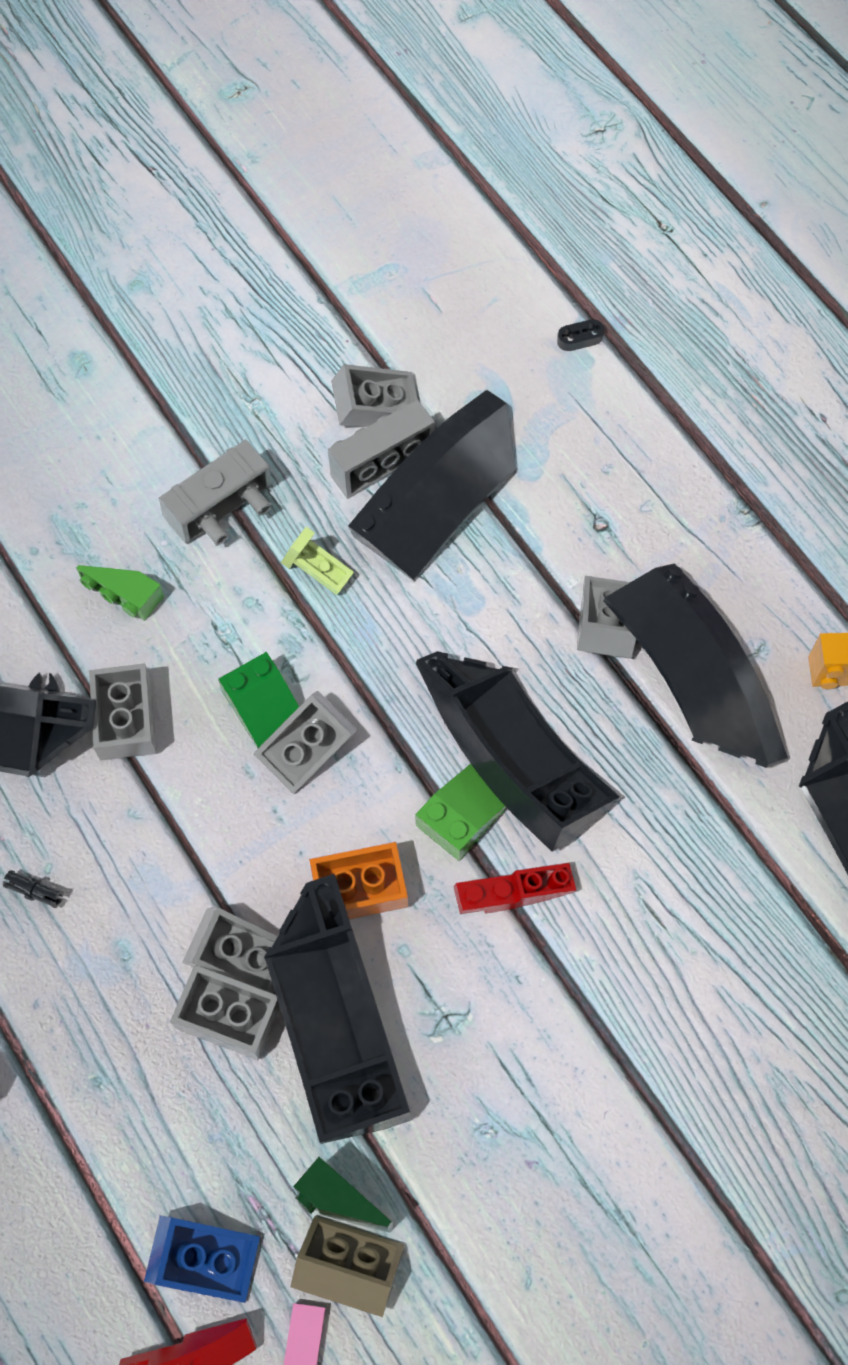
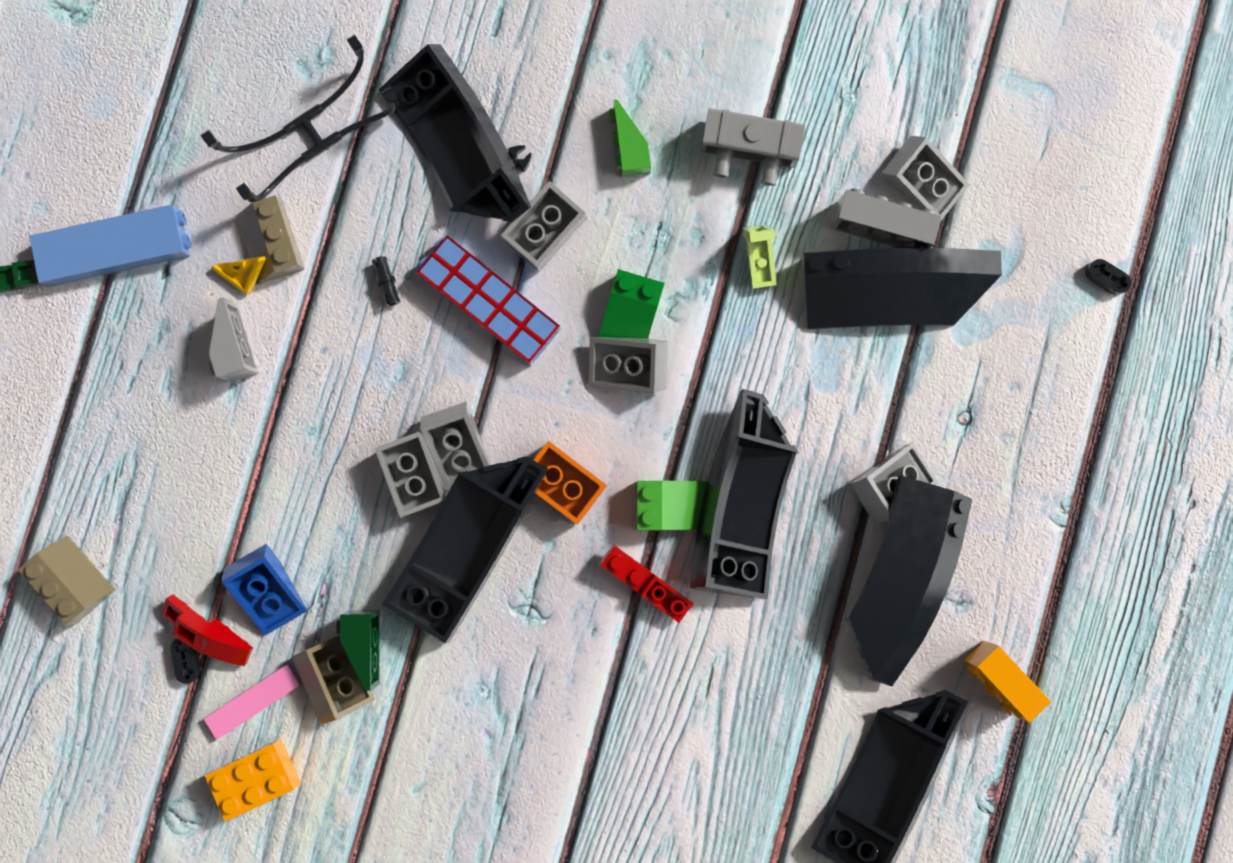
camera: 45 degrees right, 20 degrees up
(136, 813) = (488, 299): none -> medium blue brick

